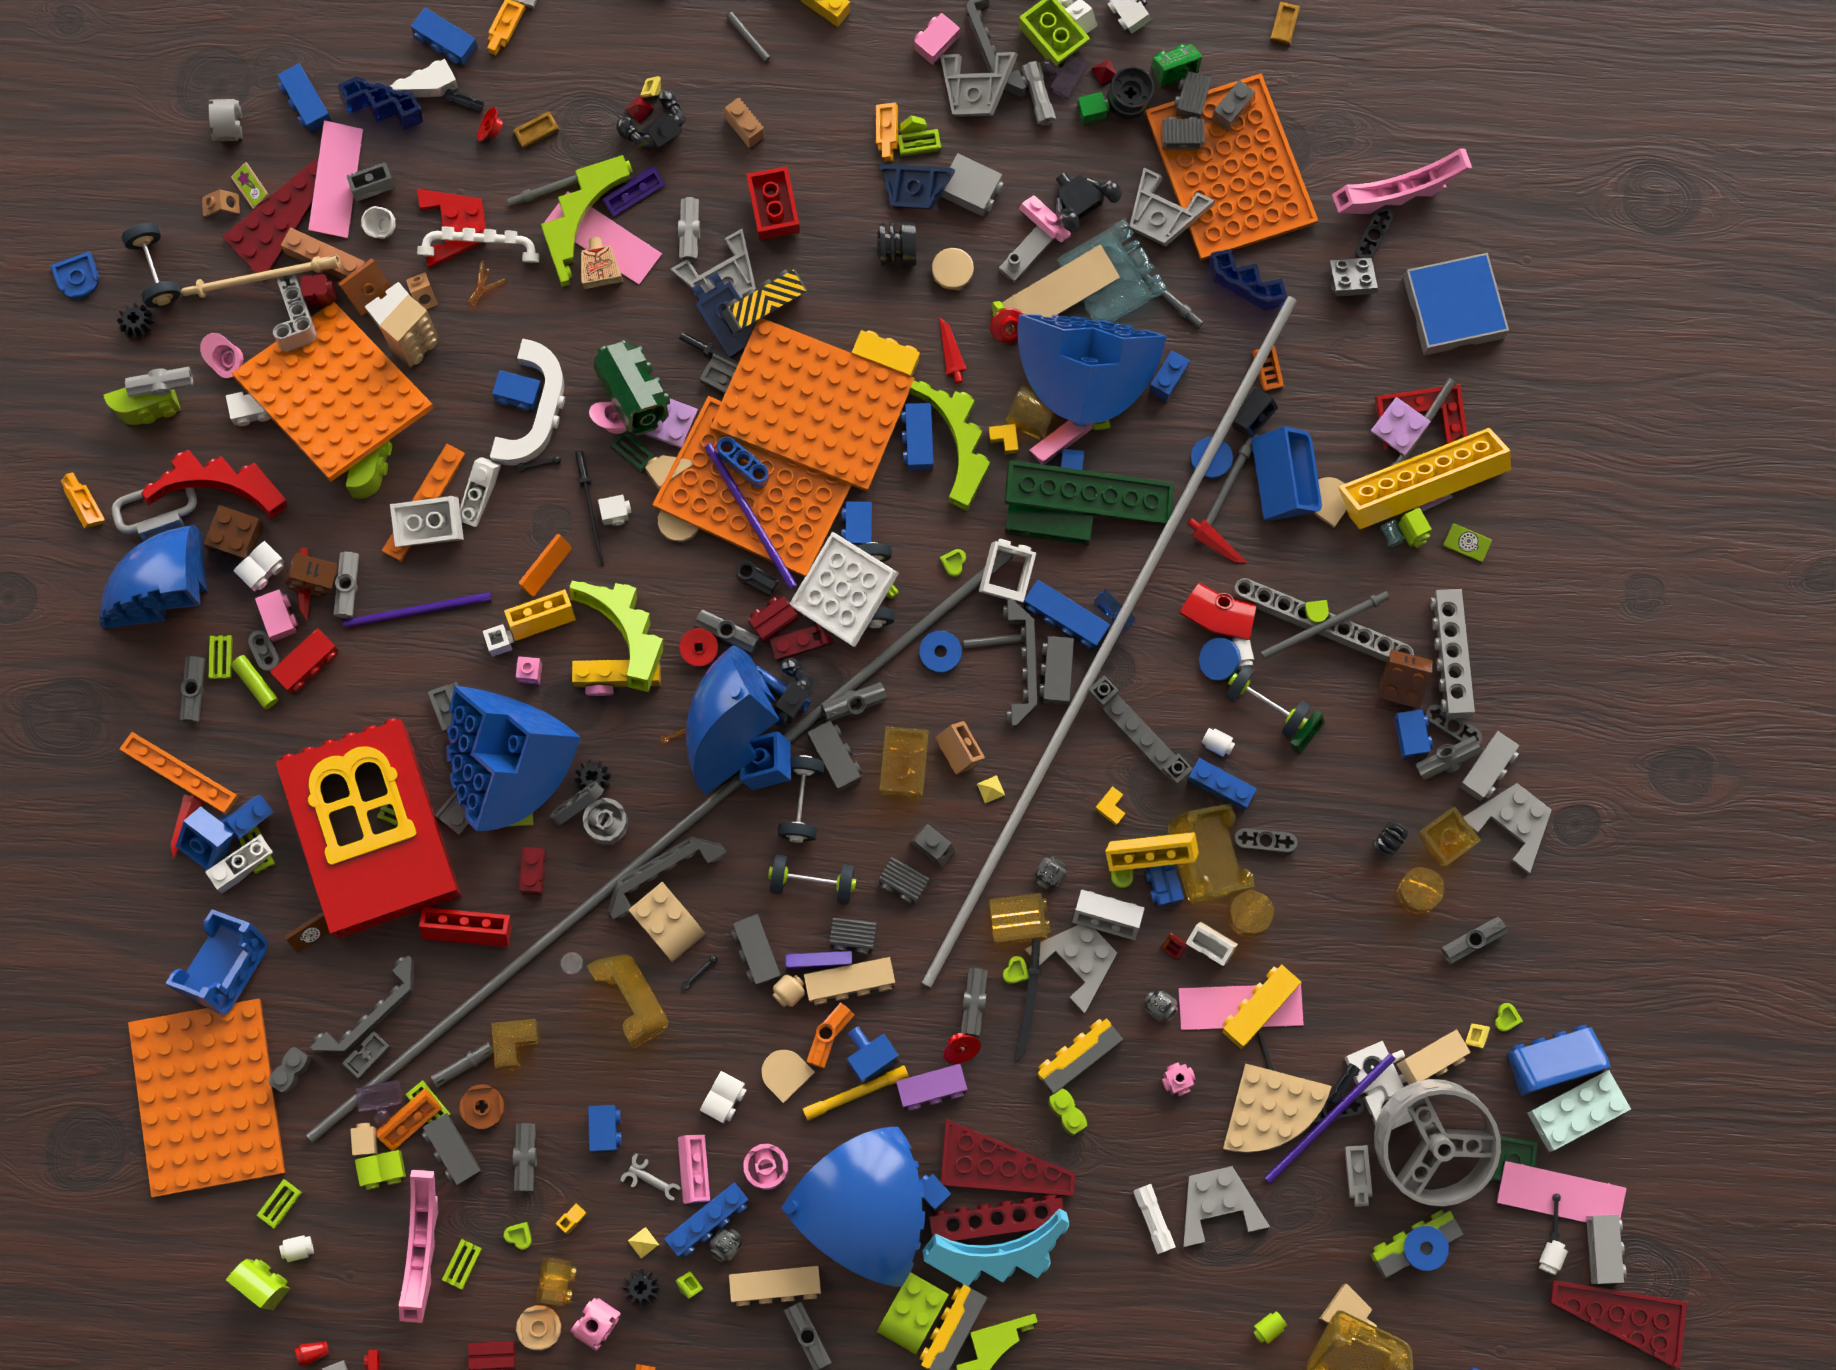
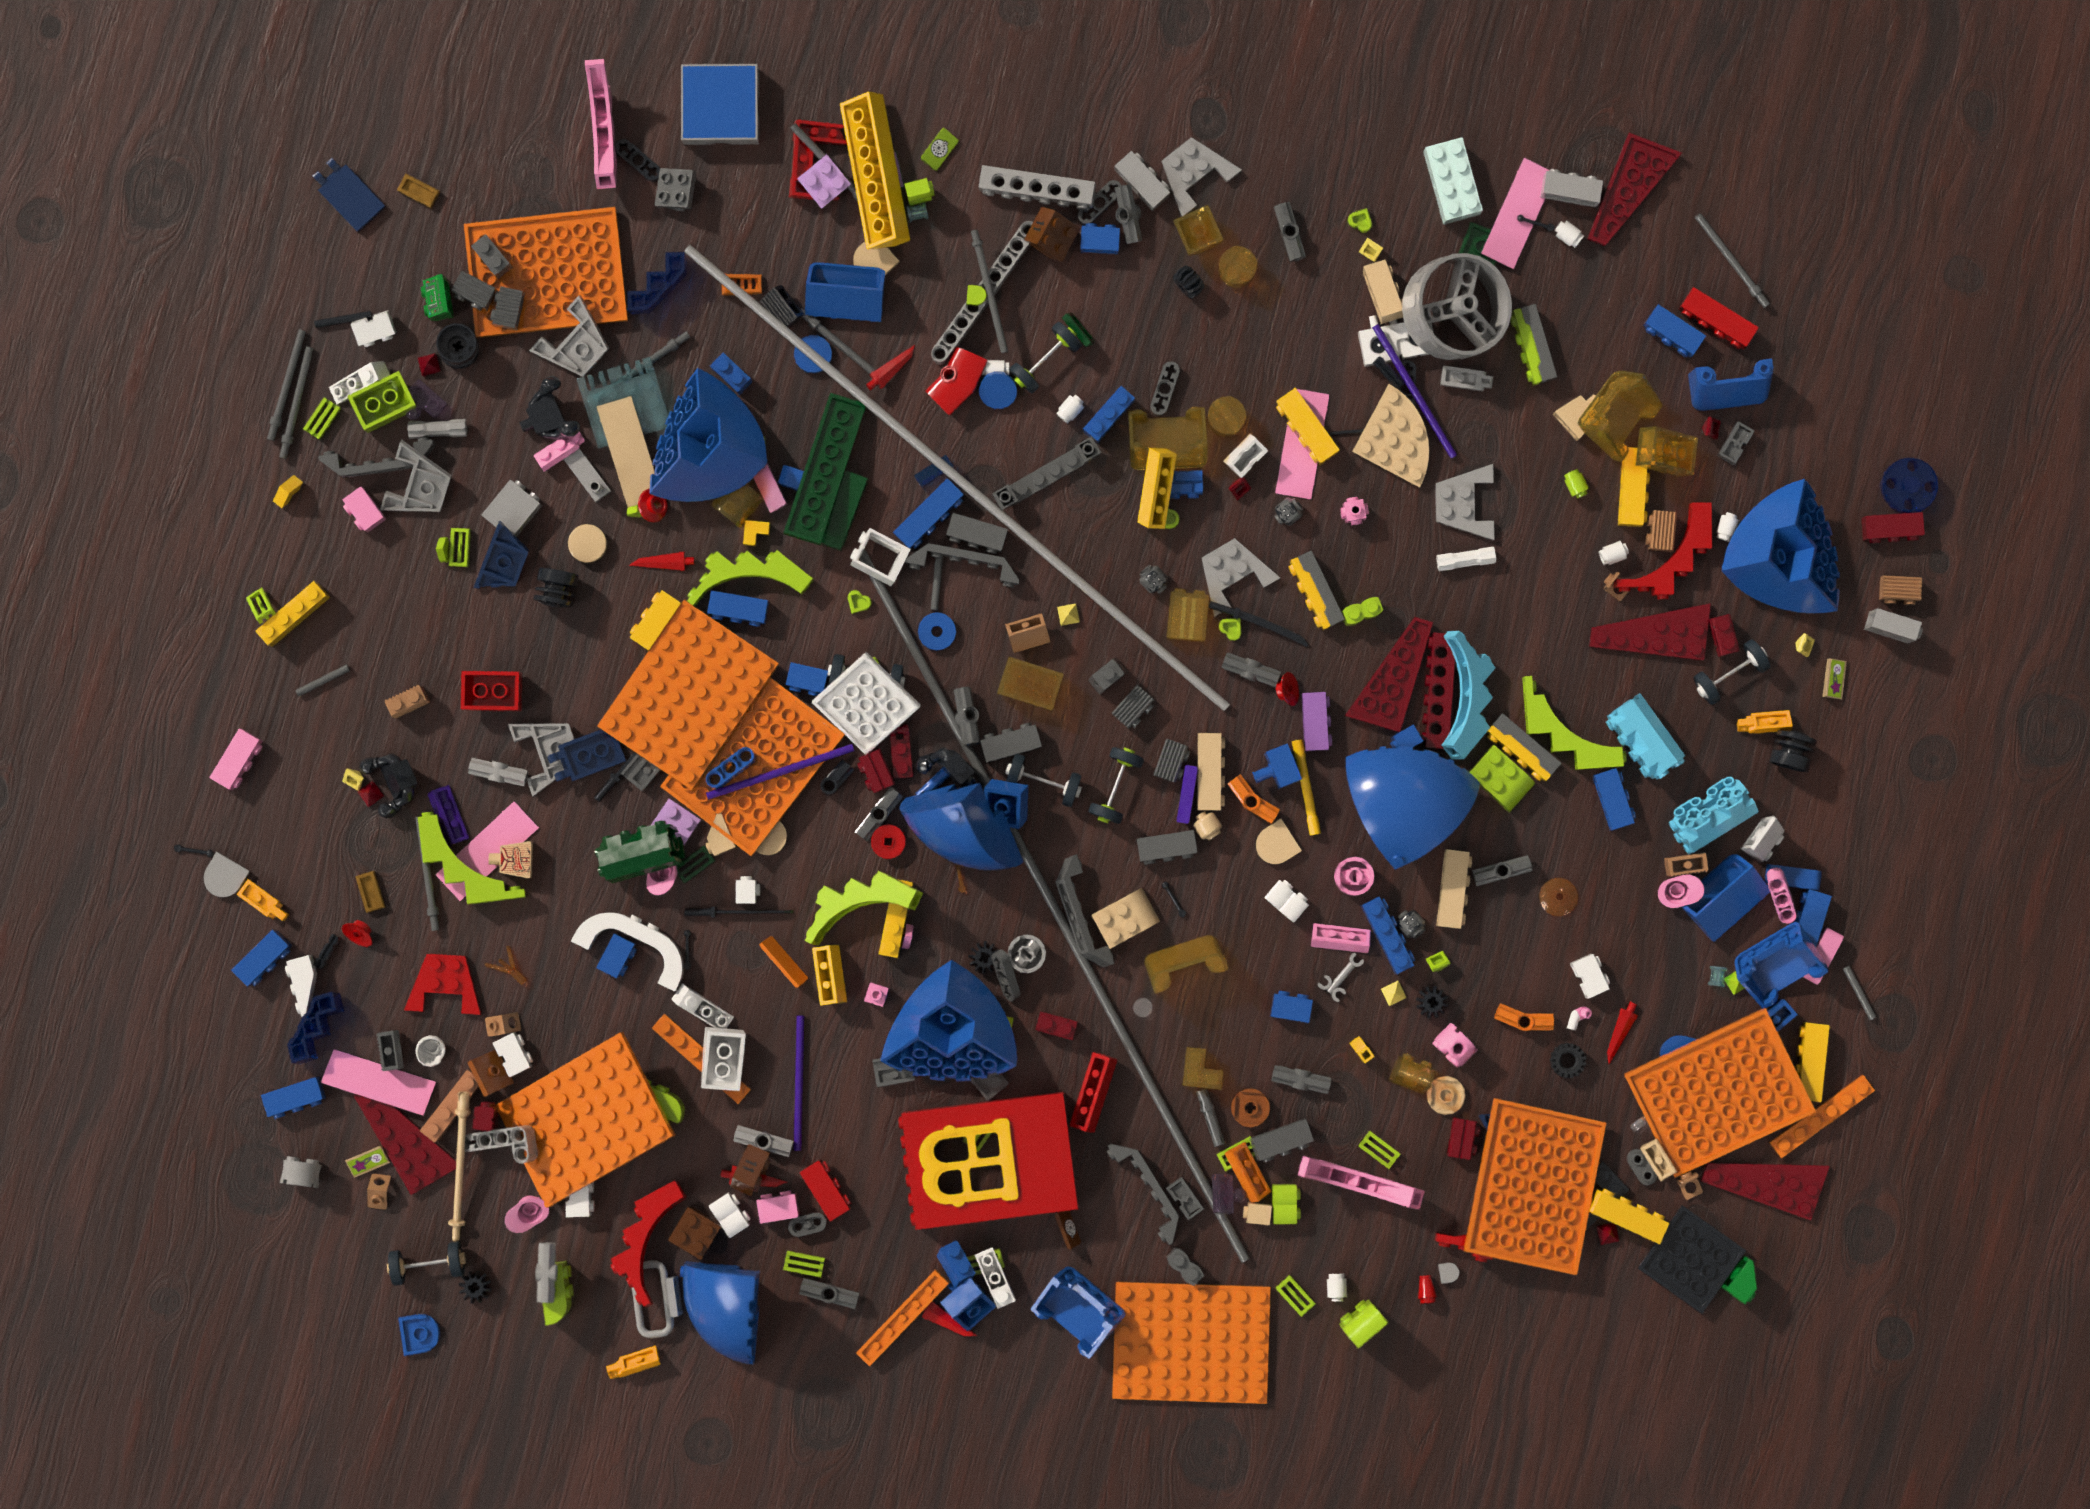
camera: 70 degrees left, 10 degrees up
(254, 682) = (833, 1237): lime piece -> none
(409, 331) = (547, 1040): tan brick -> none
(469, 235) = (466, 954): white bar -> none
(498, 640) = (844, 1015): white brick -> none
(519, 1235) = (1365, 1096): lime tile -> none
(763, 301) = (583, 718): brick -> none
(887, 129) = (441, 573): light orange hinge -> none
(1092, 107) = (462, 383): green brick -> none
(1108, 808) = (1106, 517): yellow piece -> none
(1108, 914) = (1201, 538): brick -> none
(1438, 1243) = (1552, 335): blue tile -> none
(1557, 1060) = (1407, 187): windscreen -> none

